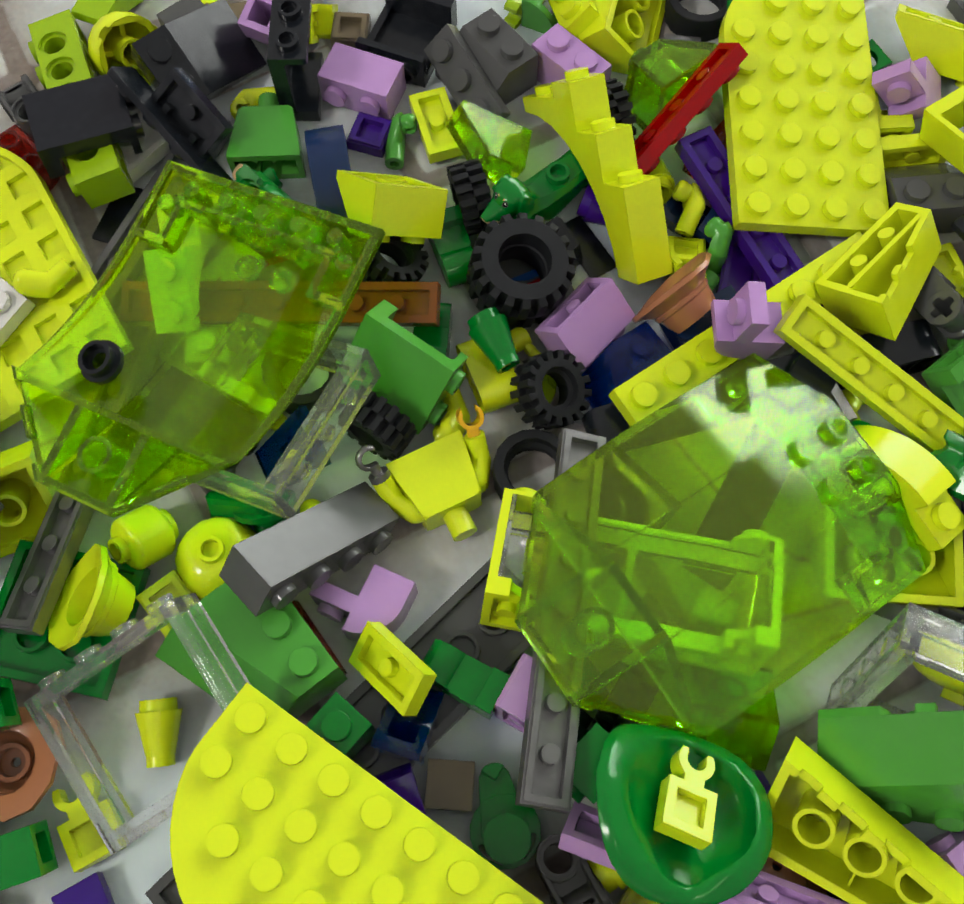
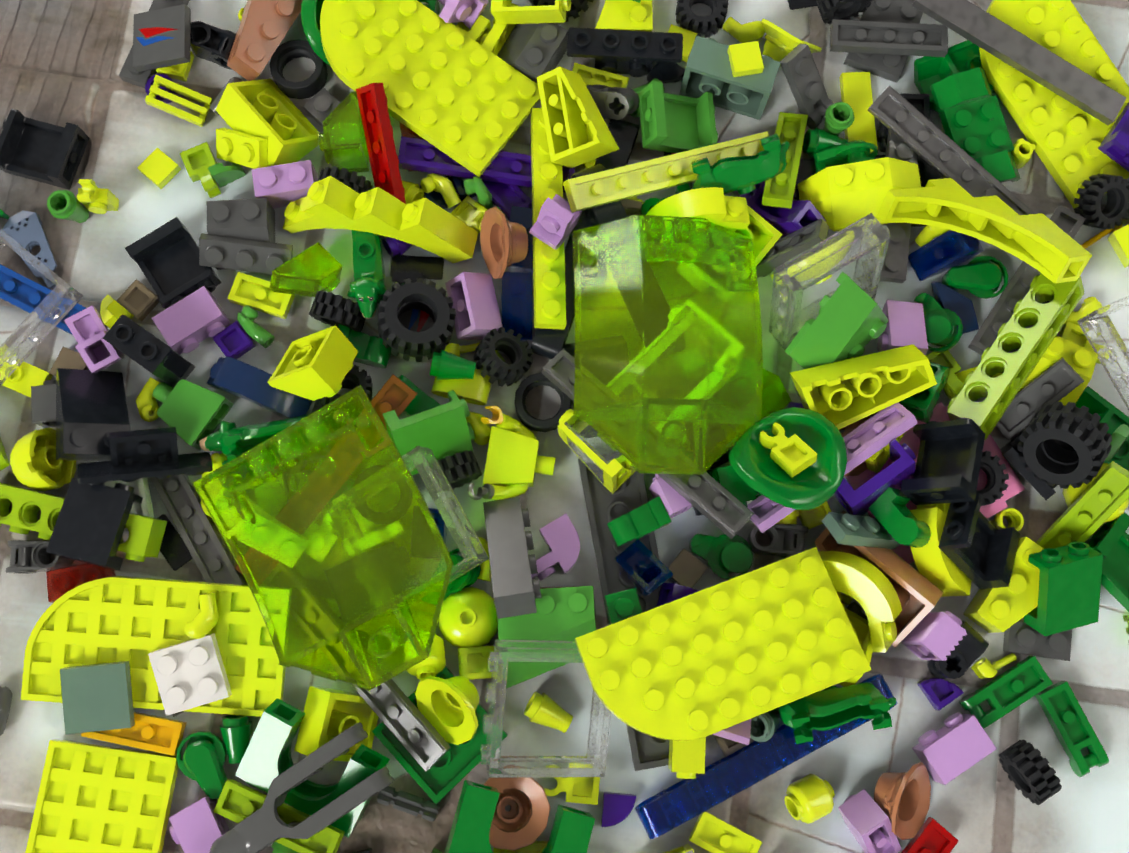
camera: 60 degrees left, 10 degrees up
(101, 361) = (300, 610): black plate -> none
(392, 668) = (609, 557): neon yellow plate -> none

